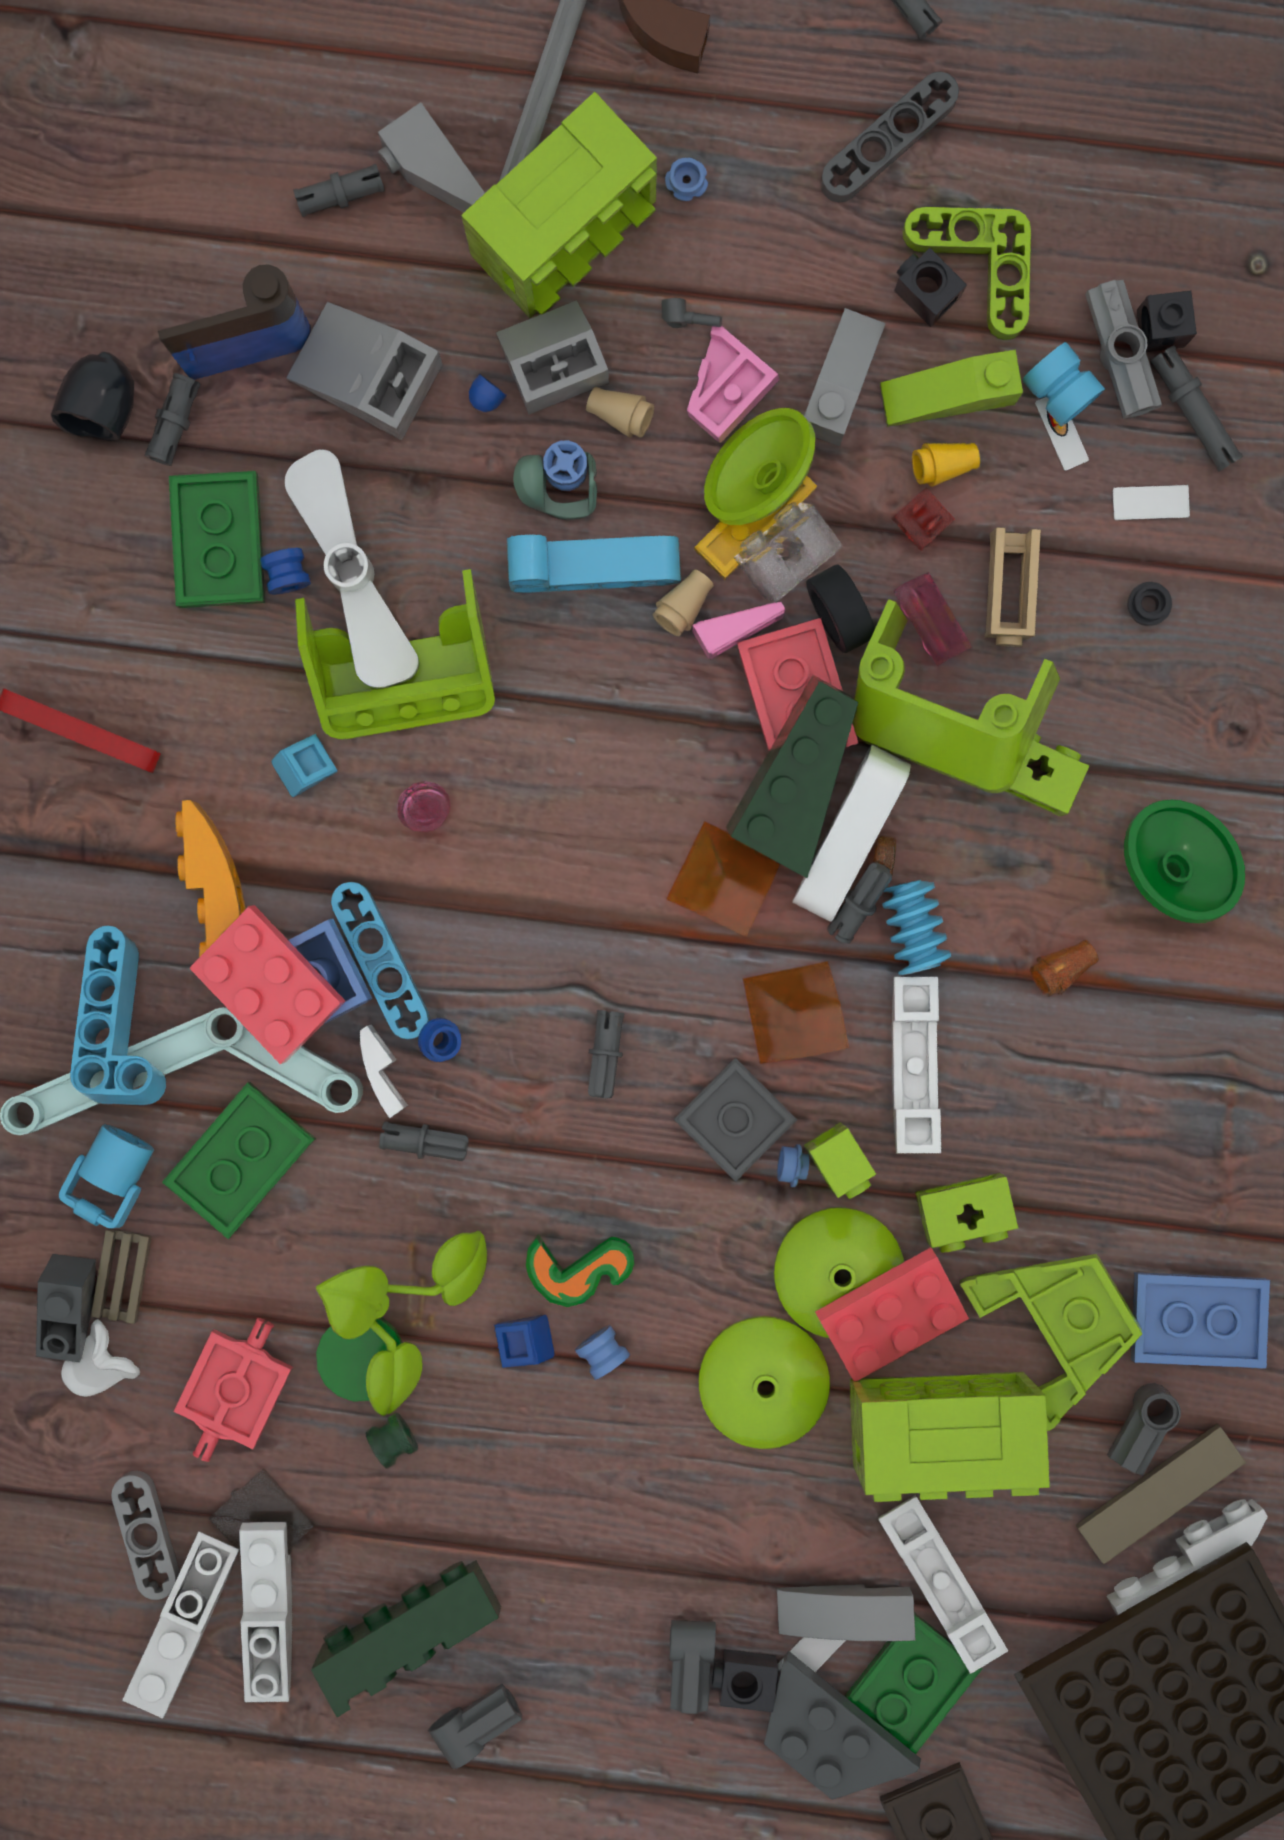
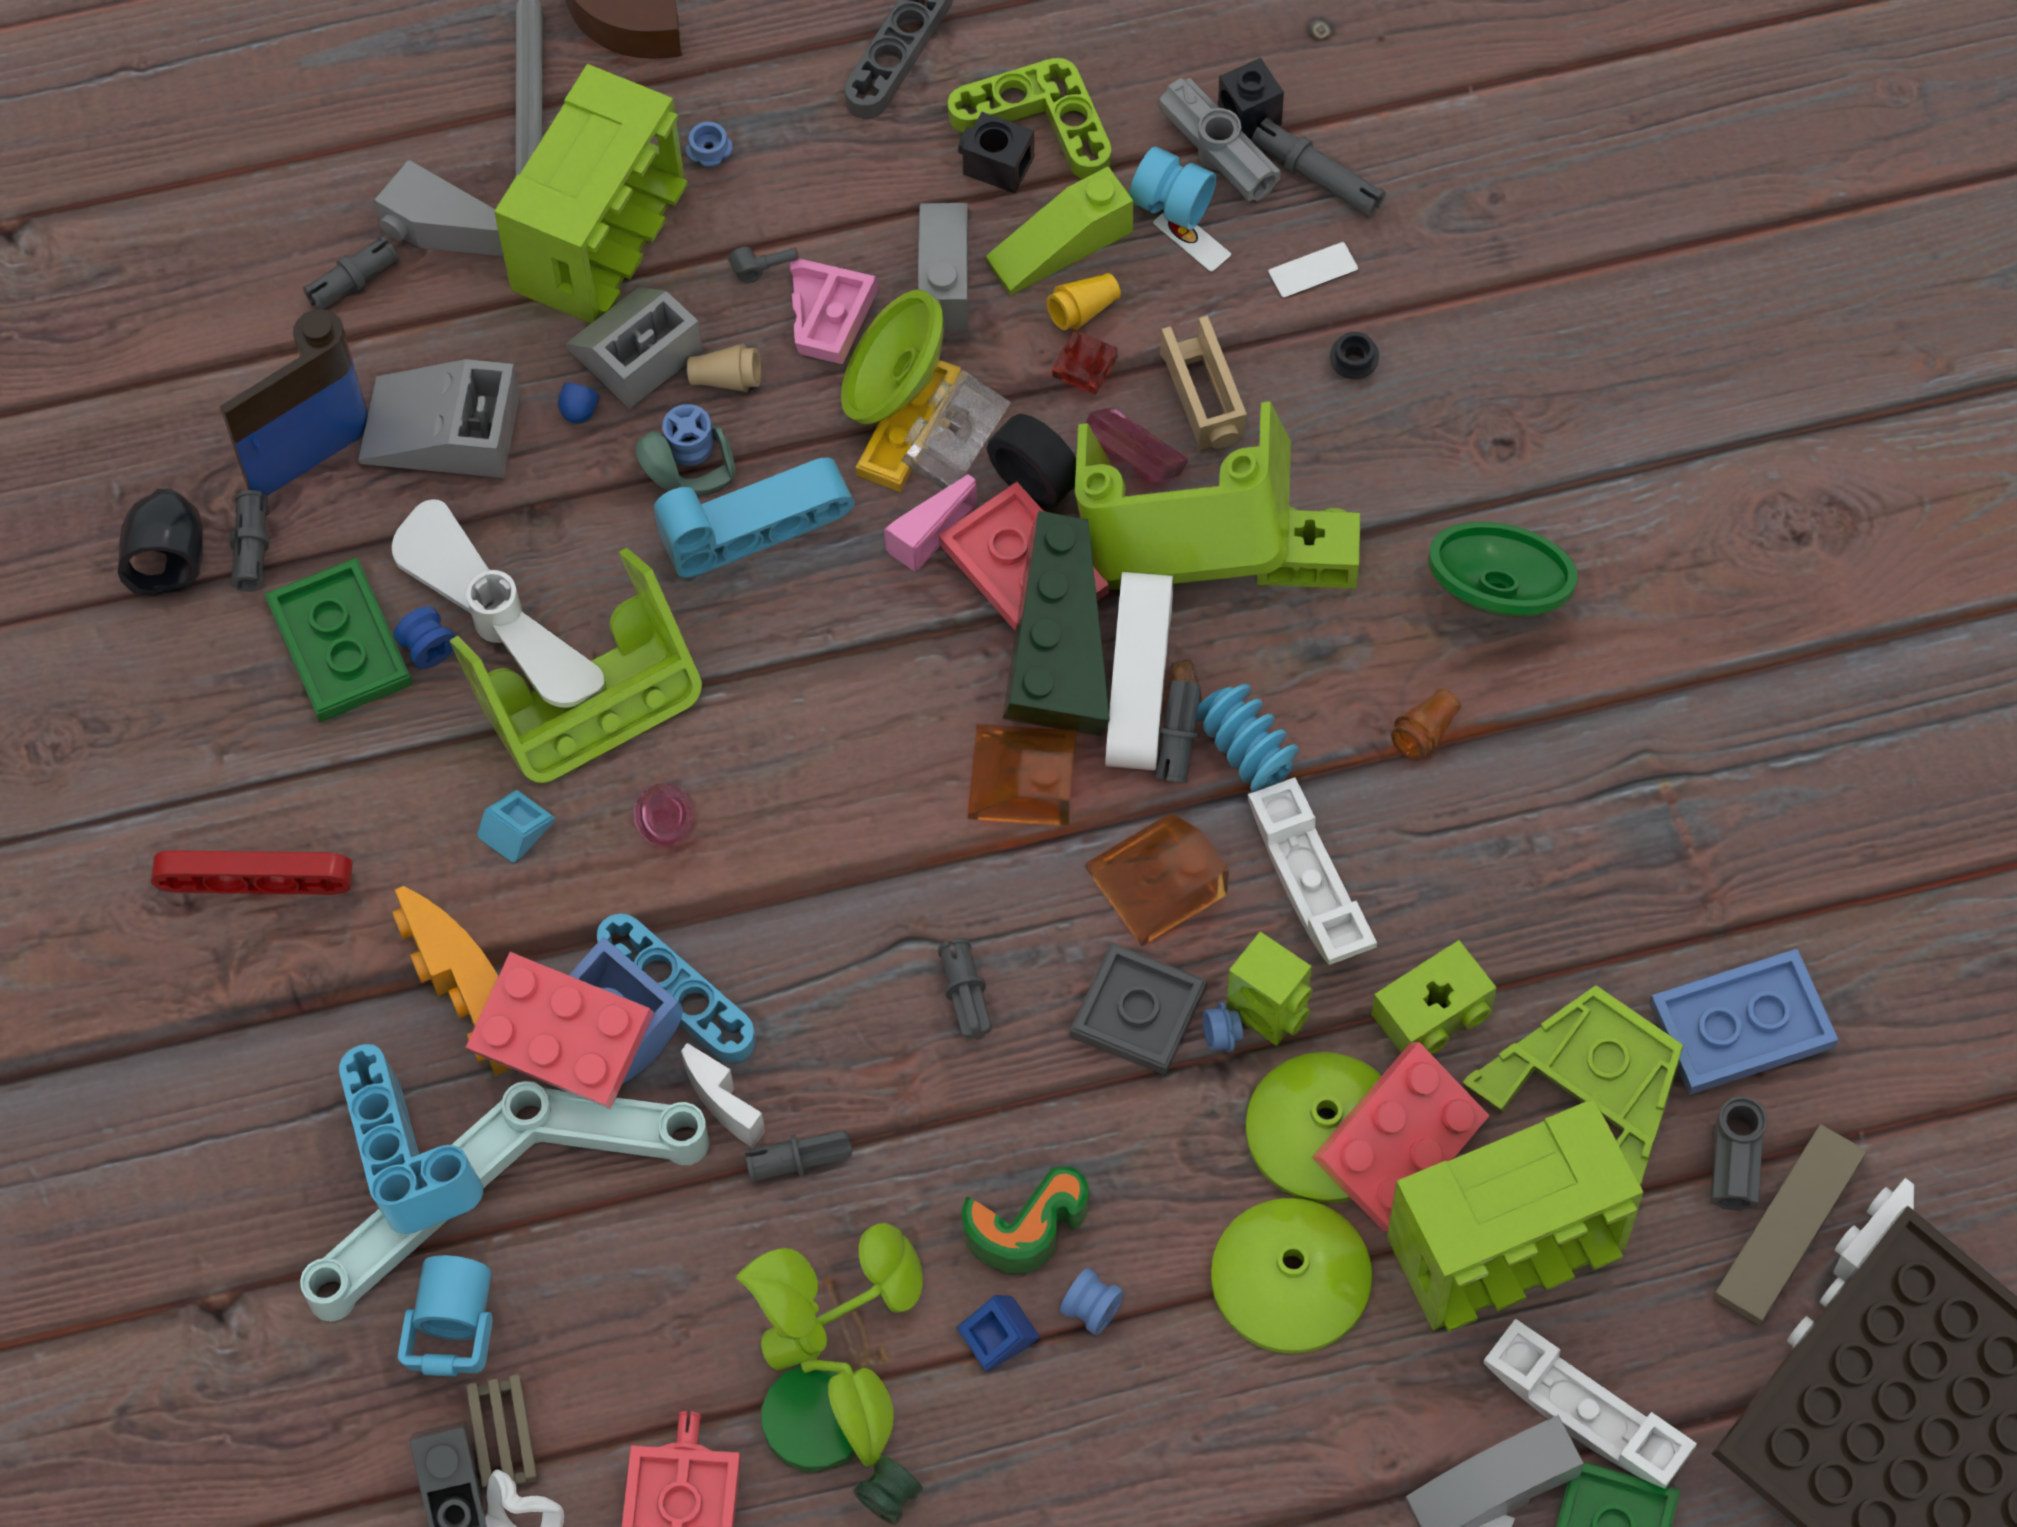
camera: 15 degrees left, 25 degrees down
(238, 1160) = (593, 1257): green tile -> none
(449, 1045) = (785, 1036): blue plate -> none
(682, 604) = (863, 526): tan cone -> none

